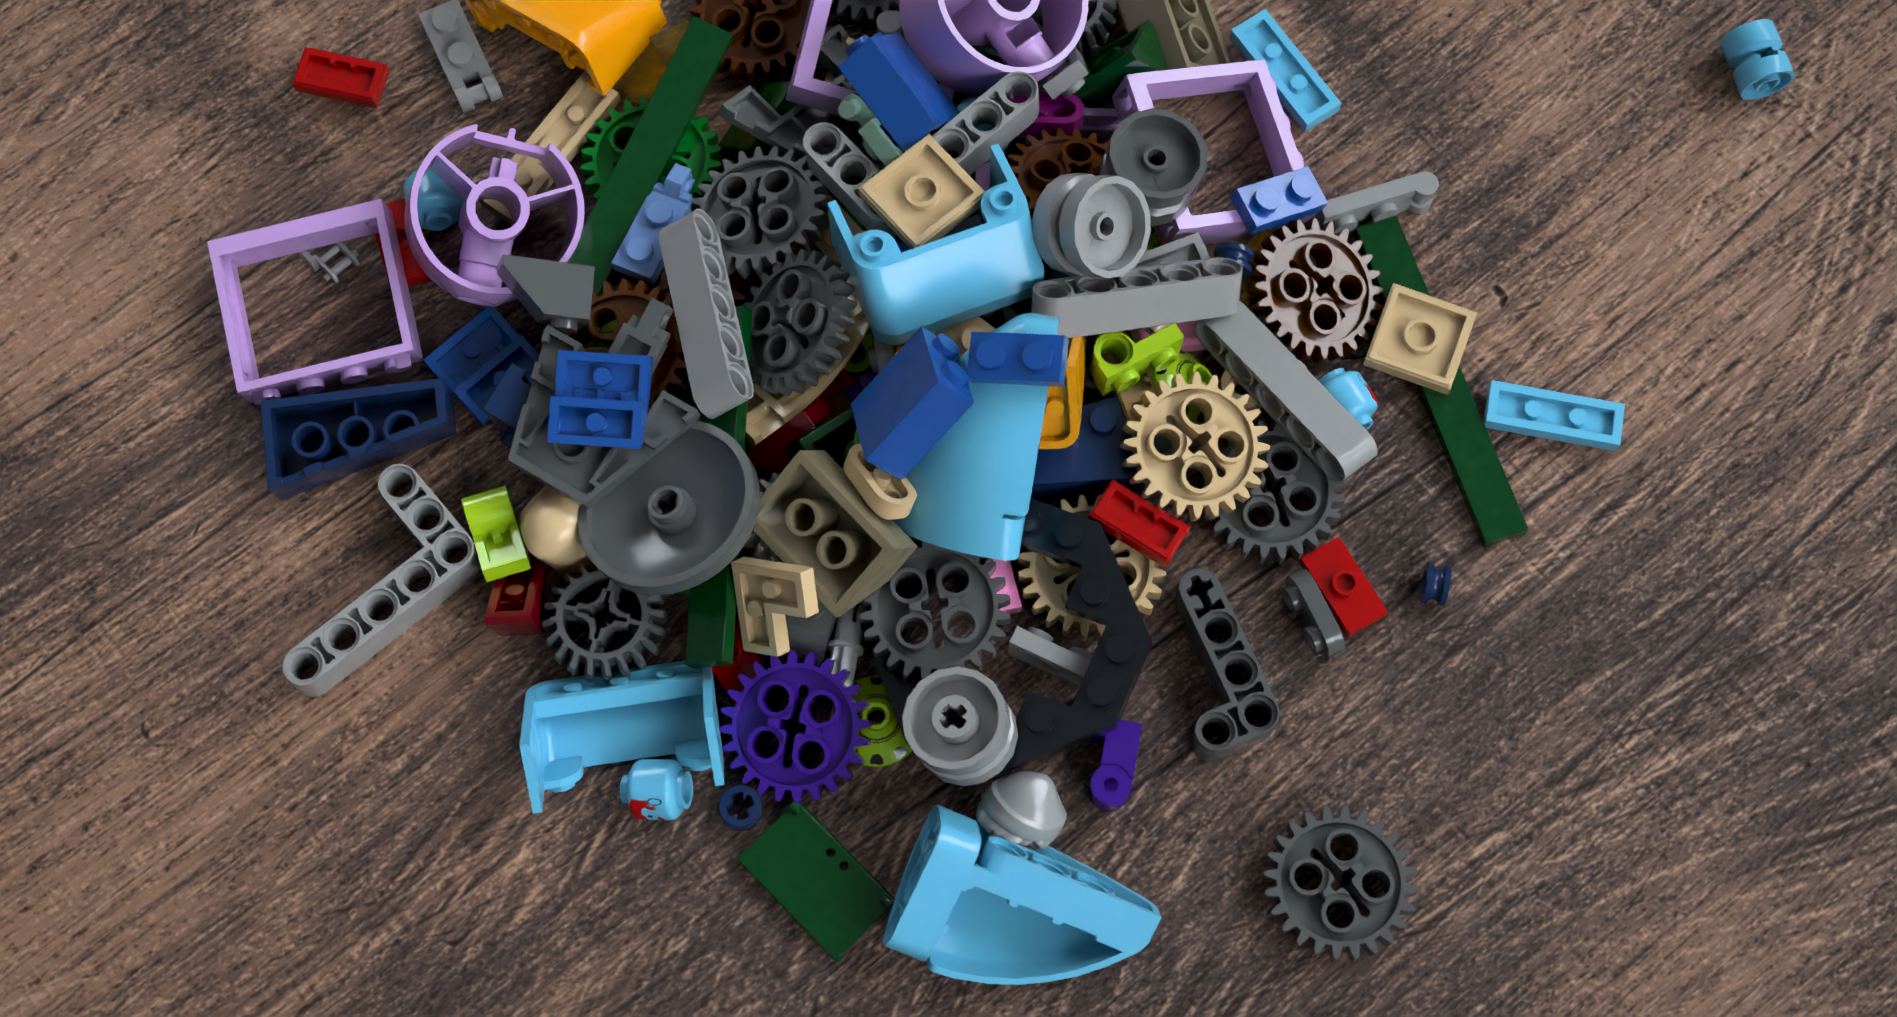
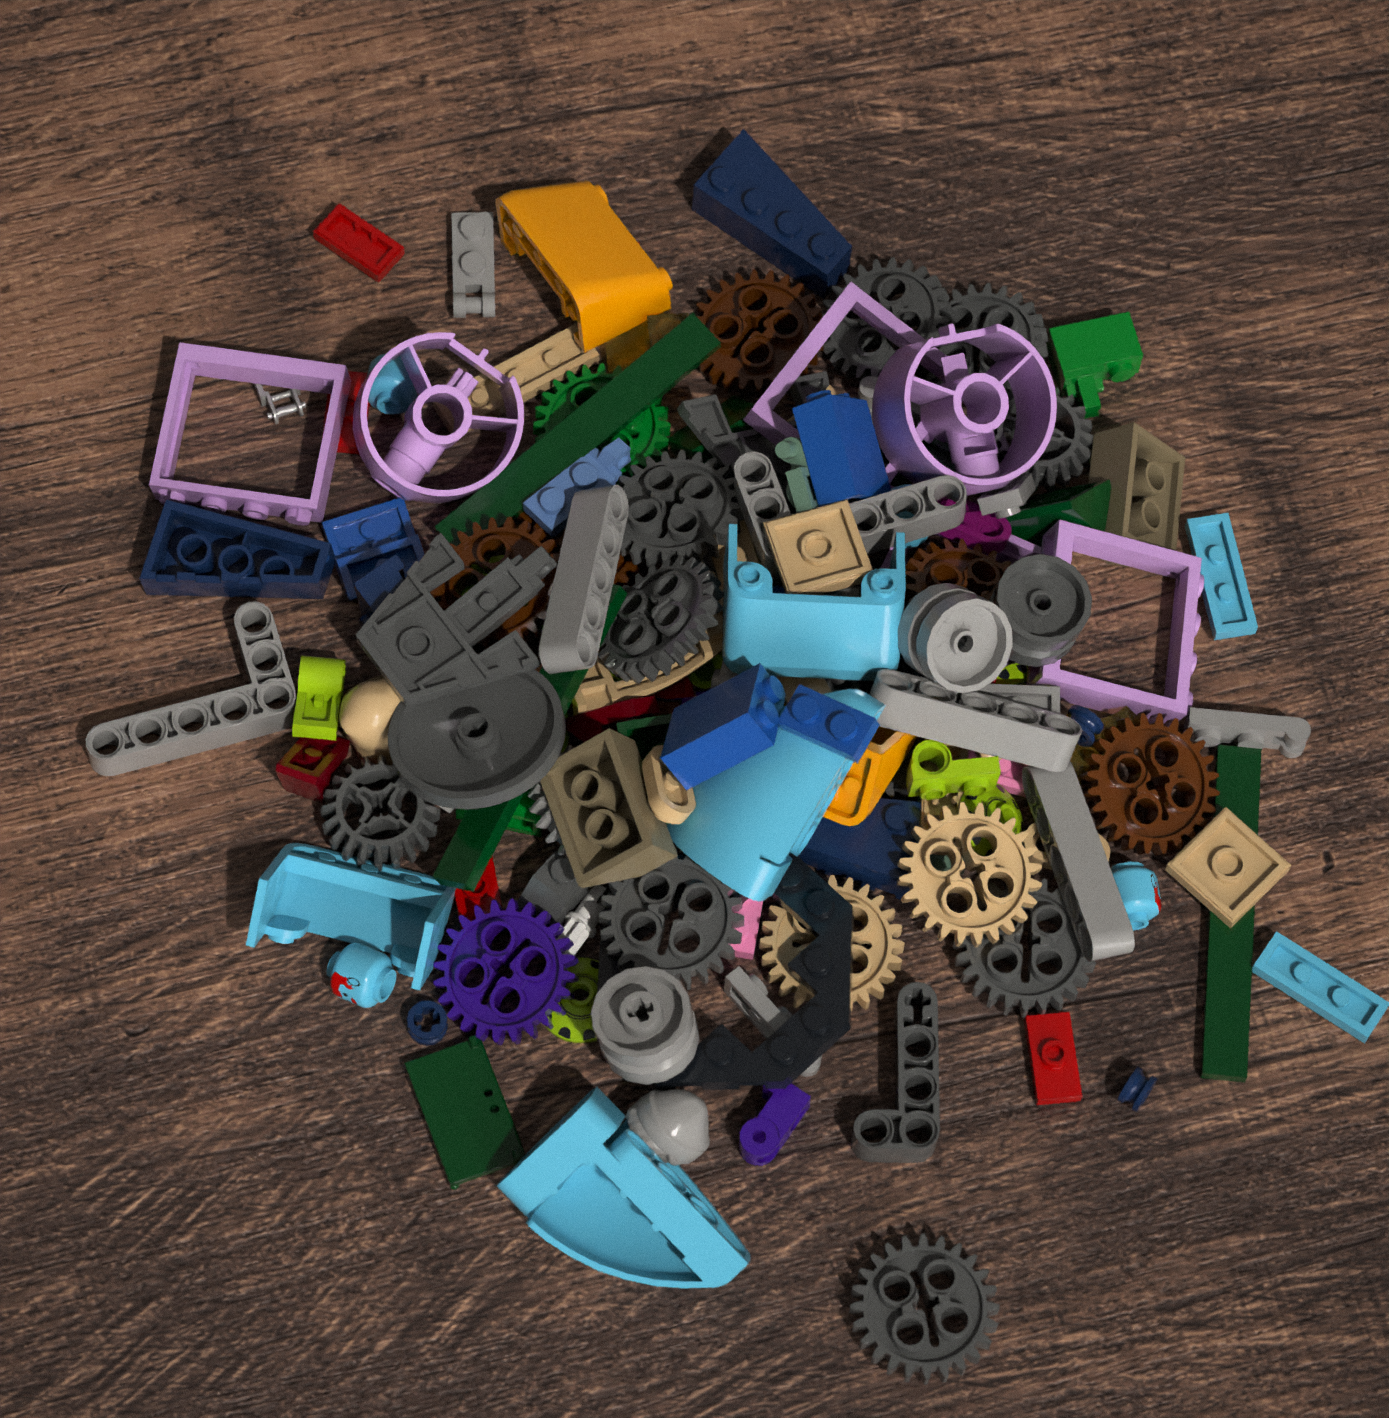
camera: 20 degrees right, 5 degrees down
(550, 290) = (457, 504): dark grey slope -> none
(600, 399) = (457, 615): blue slope -> none
(765, 595) = (528, 843): tan plate -> none
(1139, 523) = (888, 922): red plate -> none
(1278, 200) = (1150, 688): plate -> none
(1321, 628) = (1012, 1087): dark grey plate -> none

